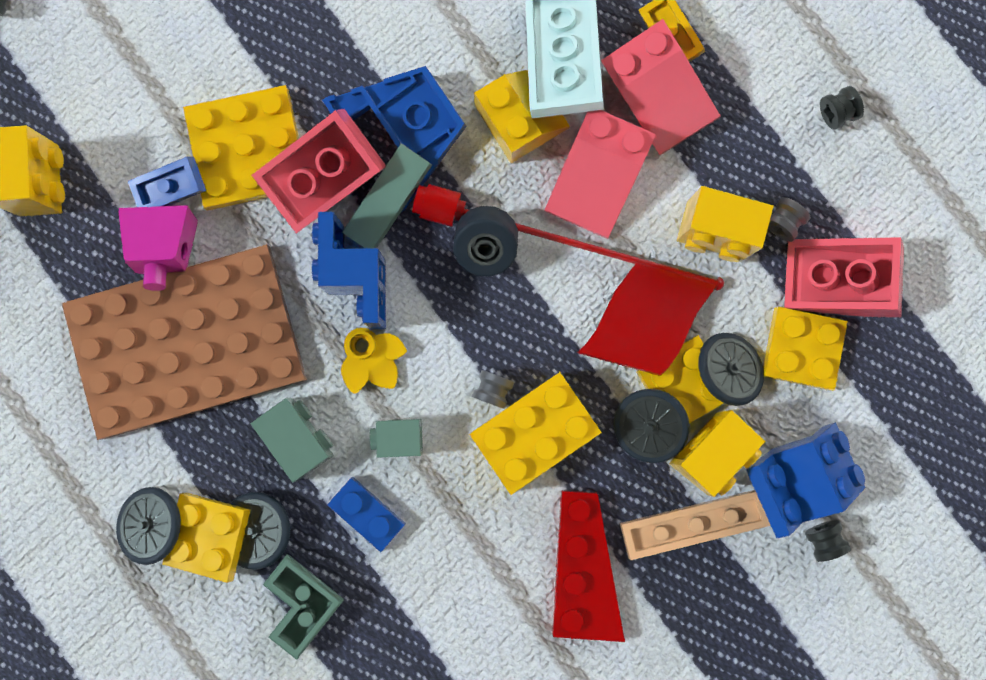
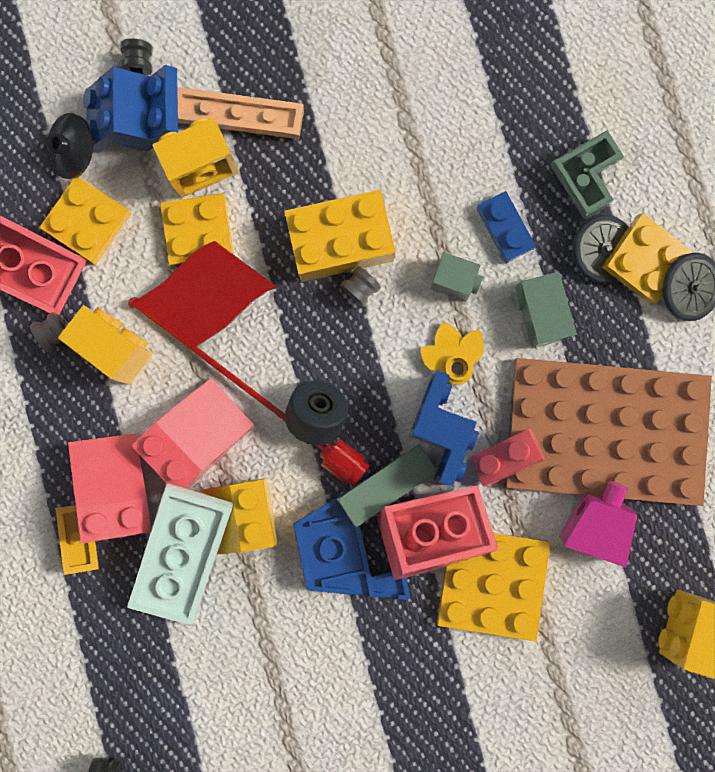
camera: 155 degrees left, 0 degrees up
(167, 184) = (575, 573): plate -> none
(276, 272) = (507, 458): none -> coral plate
(584, 579) = (346, 107): red wing -> none
(651, 425) = (240, 205): pearl dark grey wheel -> none
(731, 369) = (154, 225): pearl dark grey wheel -> none
(854, 417) = (69, 146): none -> black dish

